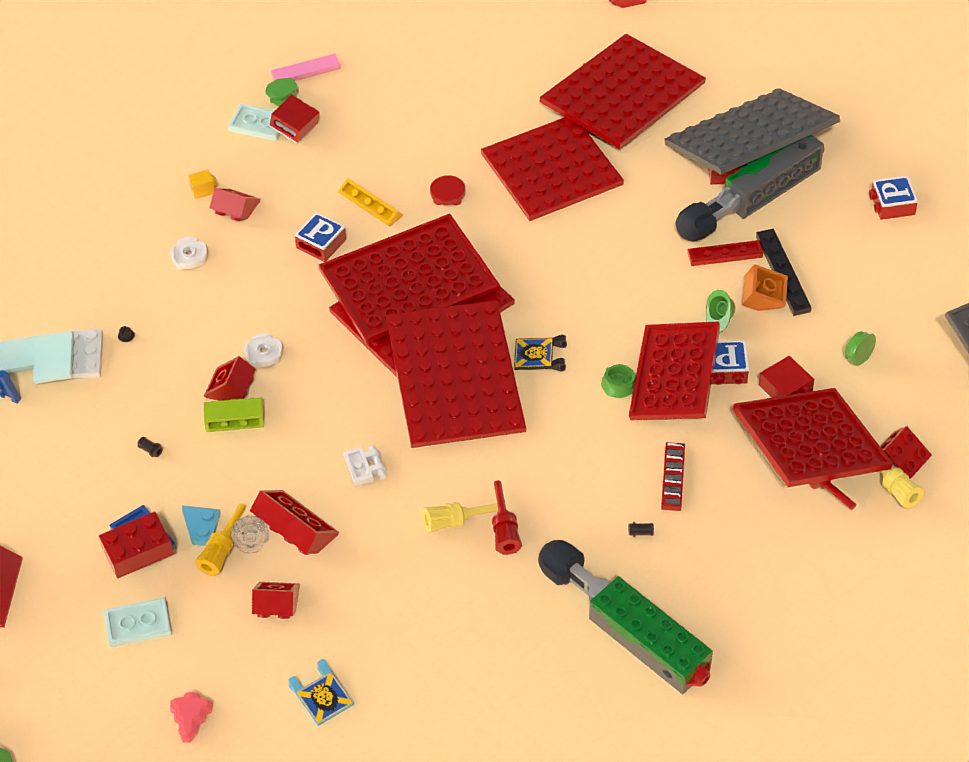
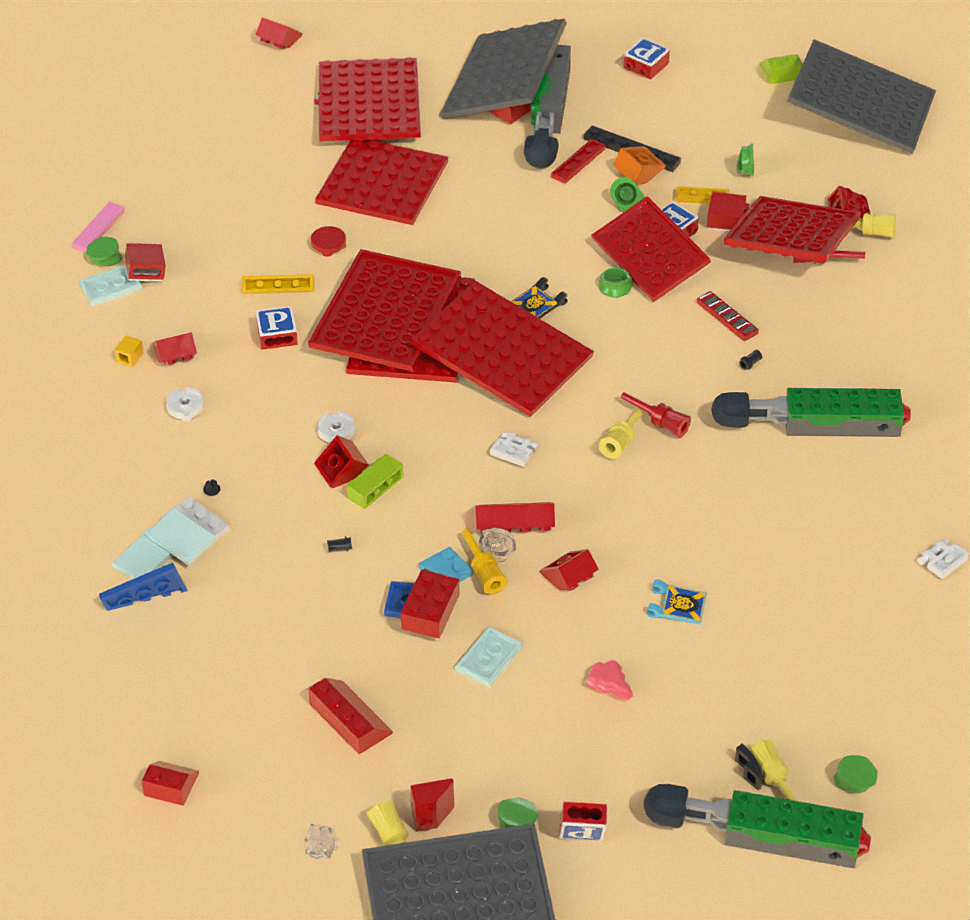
camera: 45 degrees left, 5 degrees down
(783, 347) = (696, 194): none -> yellow tile

